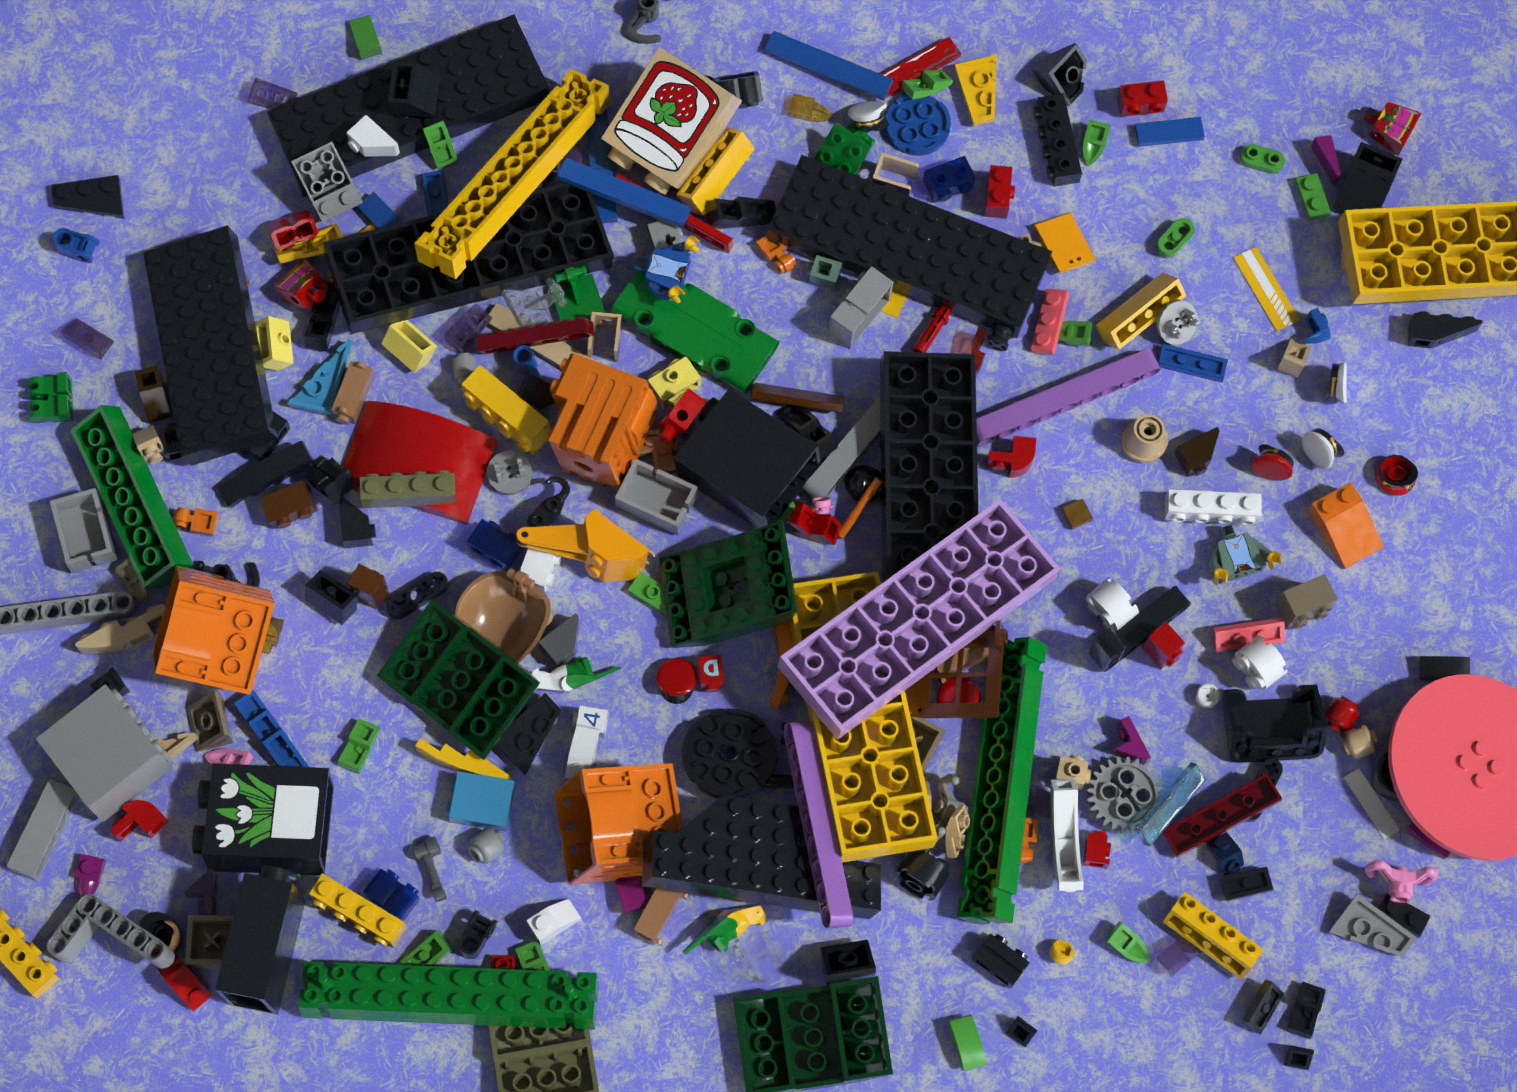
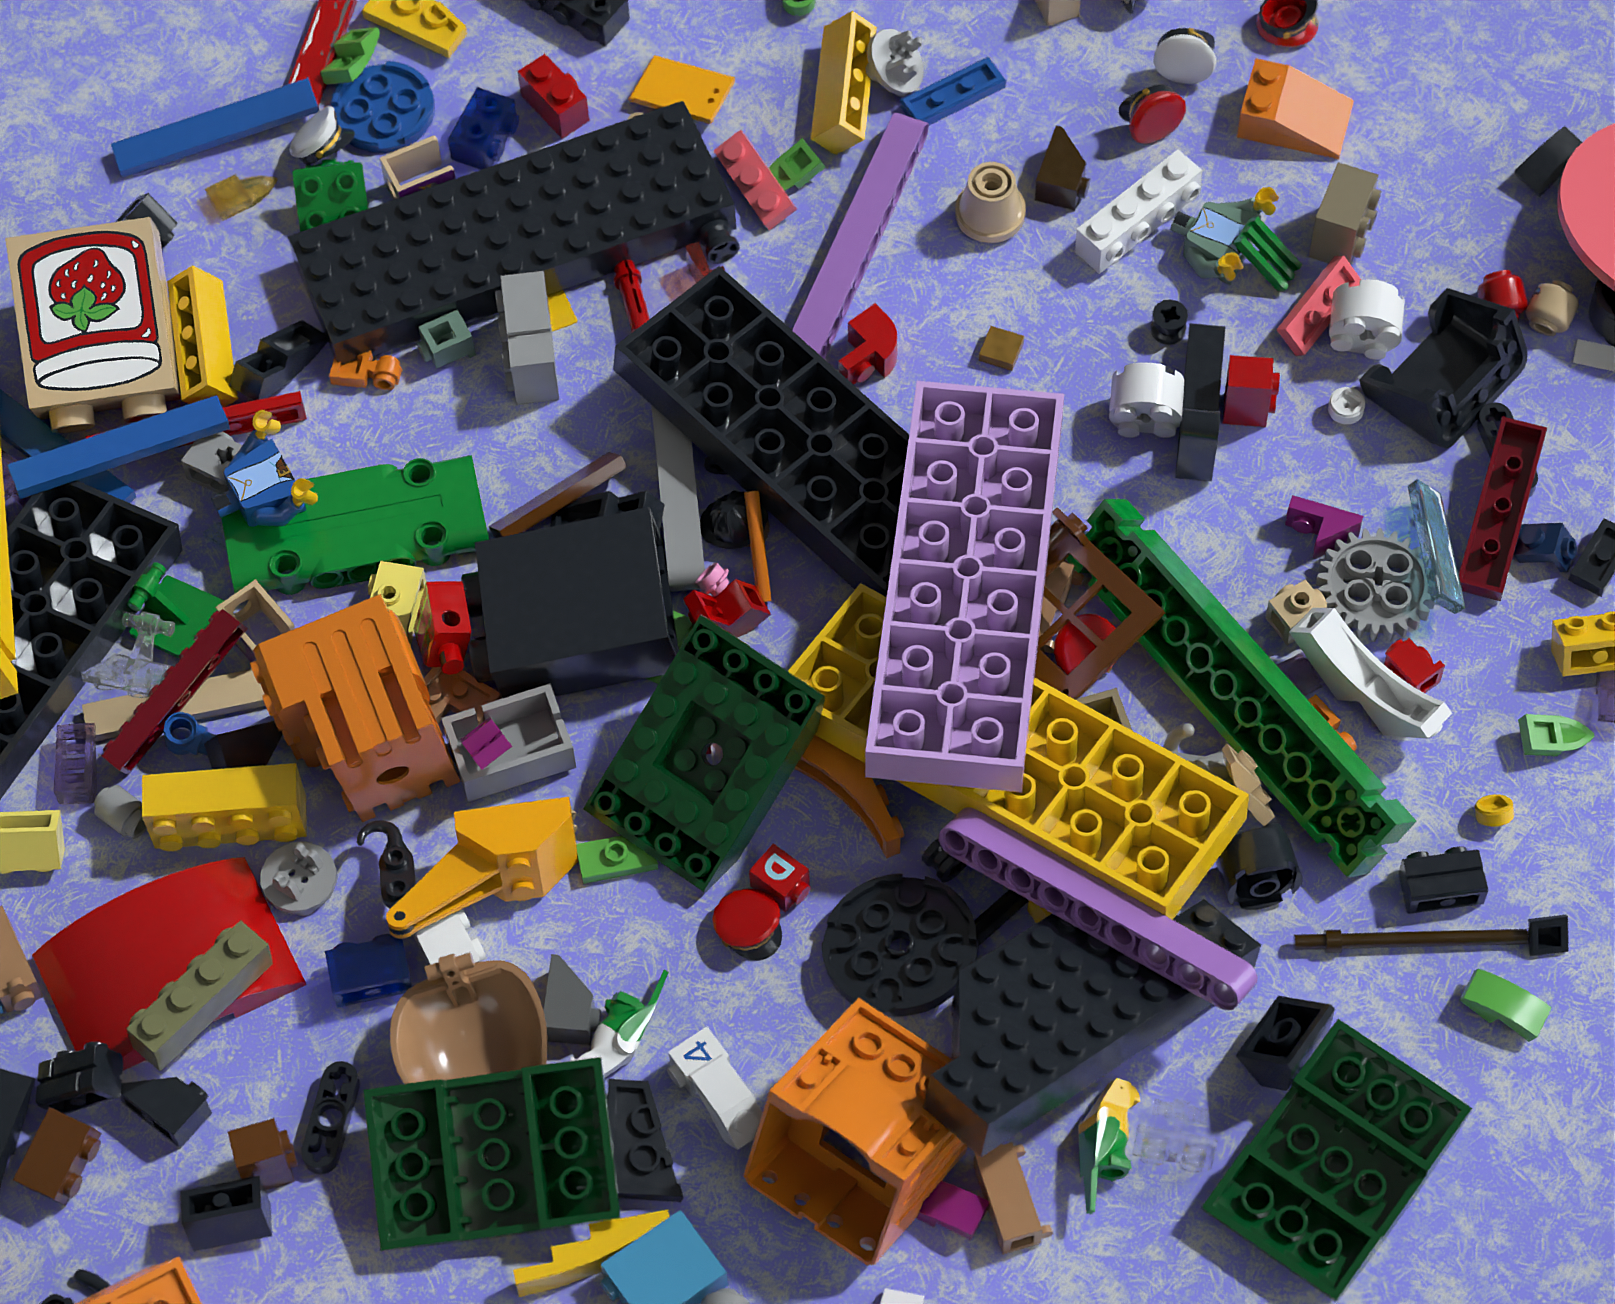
camera: 40 degrees left, 10 degrees down
(641, 488) = (485, 743): none -> magenta slope
(924, 939) = (1334, 940): none -> dark brown bar
(1166, 579) = (1172, 330): none -> black wheel
(1258, 583) = (1269, 249): none -> green tile

